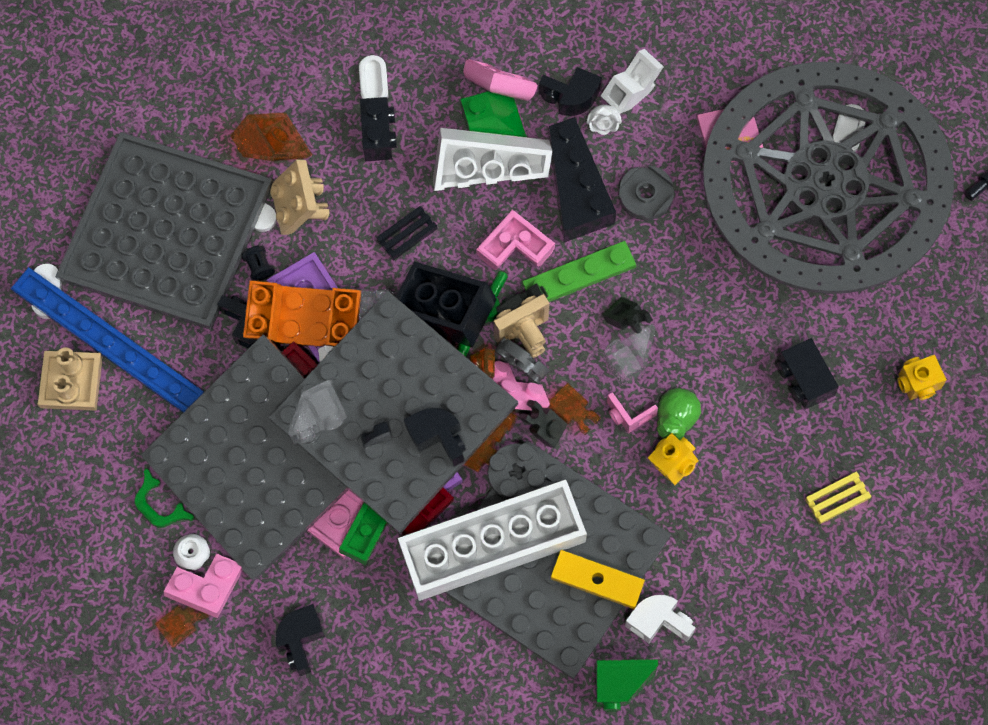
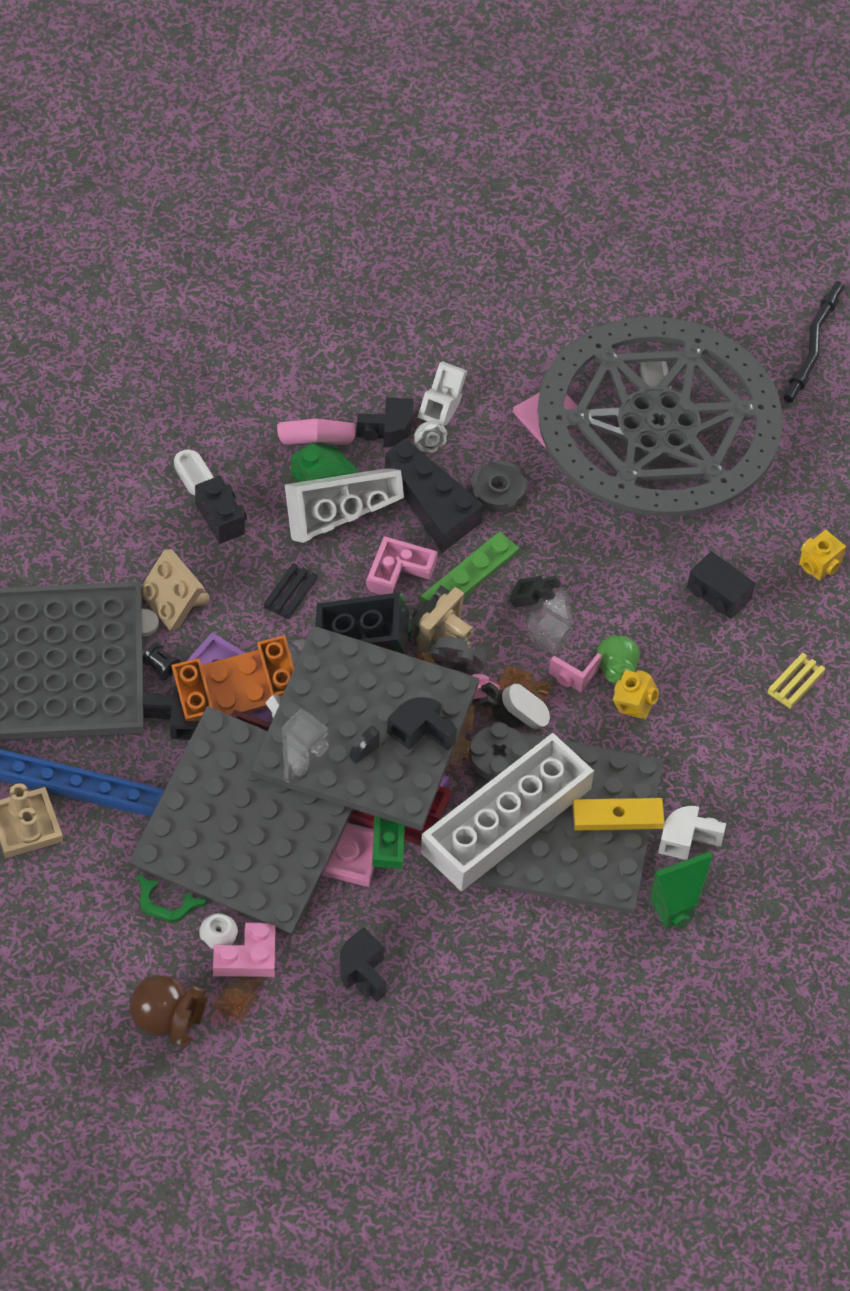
camera: 30 degrees left, 15 degrees down
(104, 614) = (165, 1007): none -> reddish brown tile
(269, 138) = (117, 549): clear orange slope -> none
(564, 434) = (525, 706): none -> white tile

